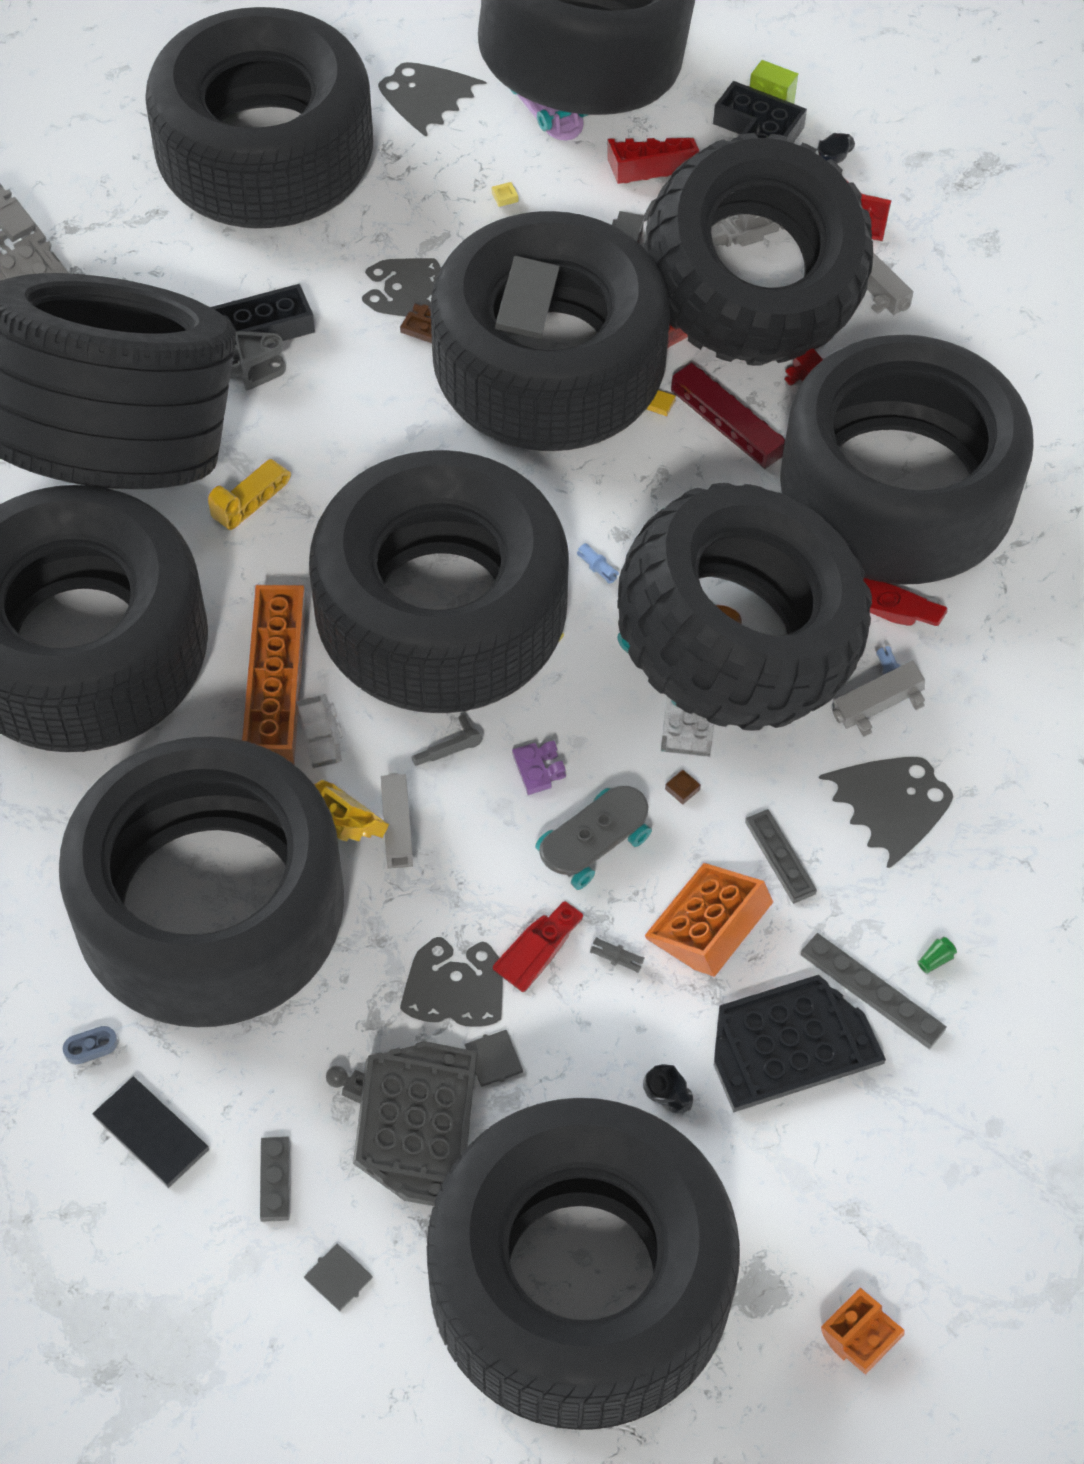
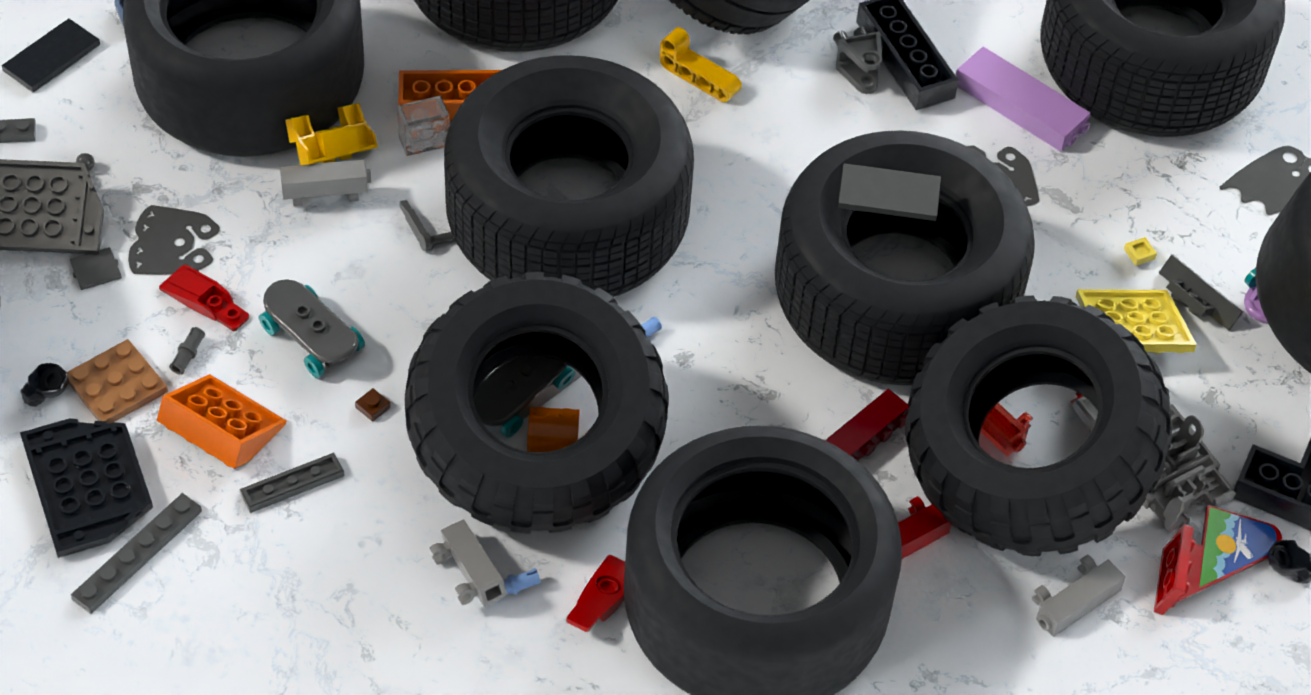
camera: 85 degrees right, 5 degrees down
(312, 248) = (1022, 99): none -> lavender brick
(532, 769) = (393, 288): medium lavender plate -> none
(555, 163) = (1198, 293): none -> dark grey bracket
(600, 194) = (1146, 314): none -> light yellow plate
(648, 159) = (1222, 375): red wedge -> none
(657, 1024) = (116, 382): none -> medium nougat plate
(662, 403) = (863, 390): yellow tile -> none
(882, 802) = (349, 575): dark grey piece -> none
(938, 954) = (169, 605): green cone -> none

